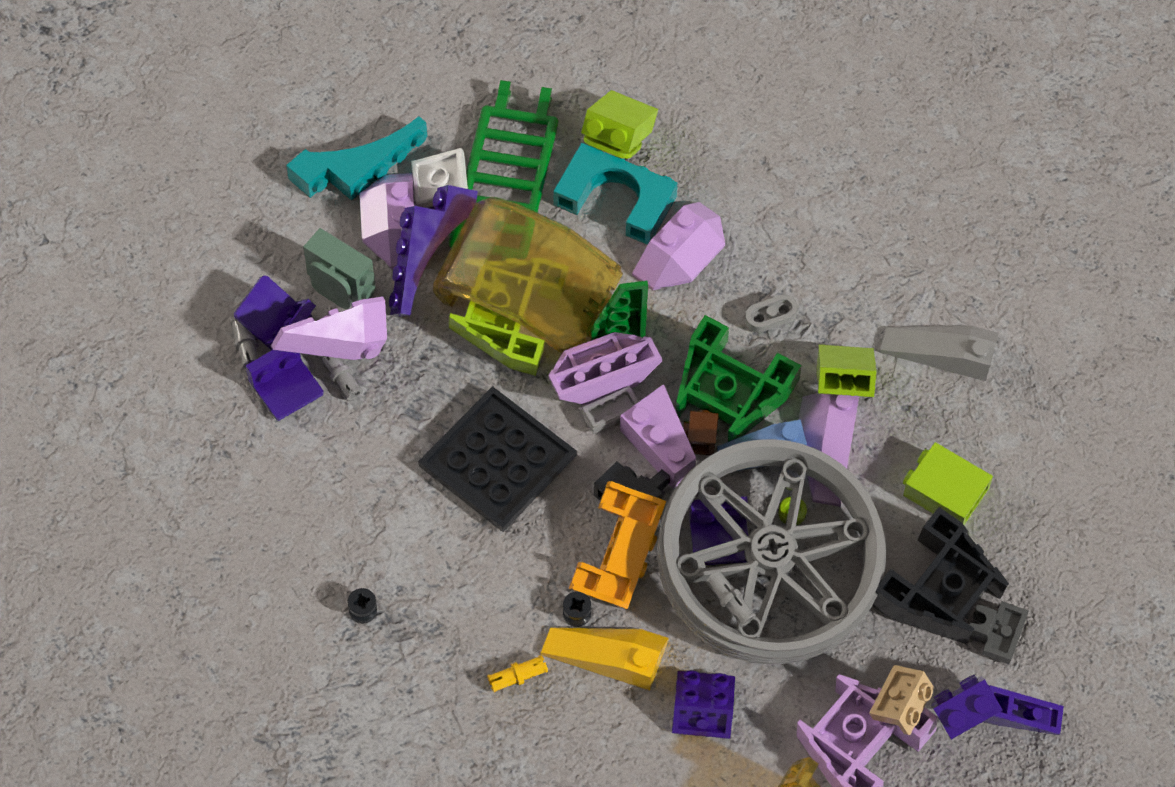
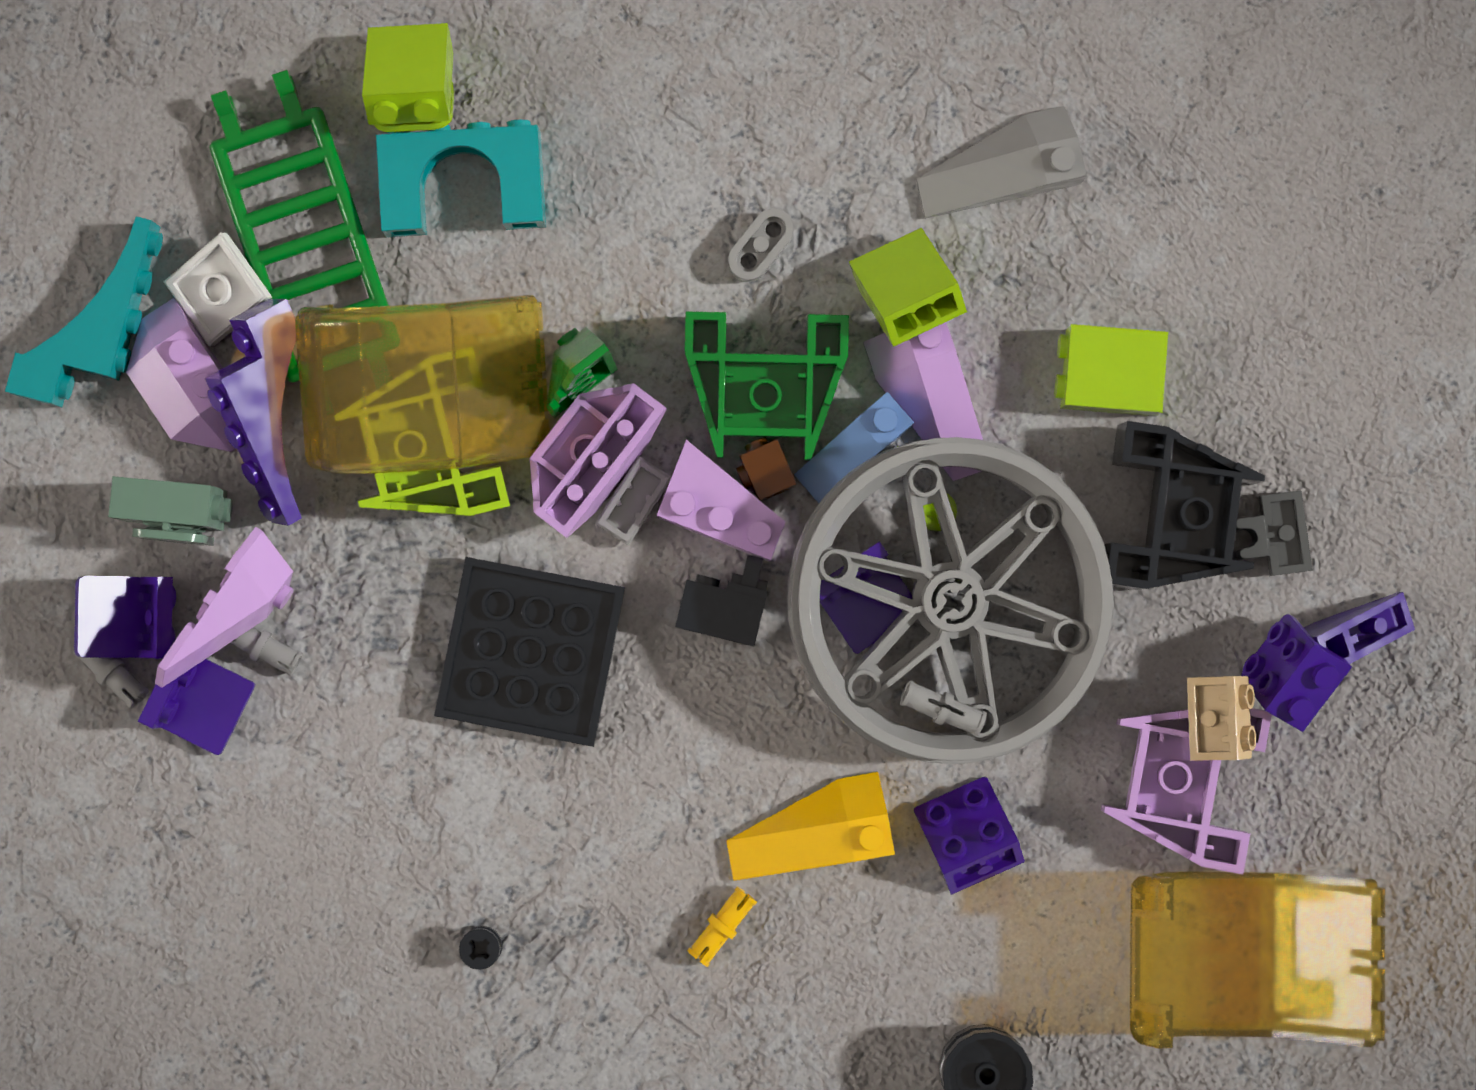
camera: 25 degrees left, 25 degrees up
(575, 615) = (748, 795): black wheel -> none
(627, 548) = (766, 692): light orange bracket -> none
(681, 248) = (595, 211): lavender wedge -> none

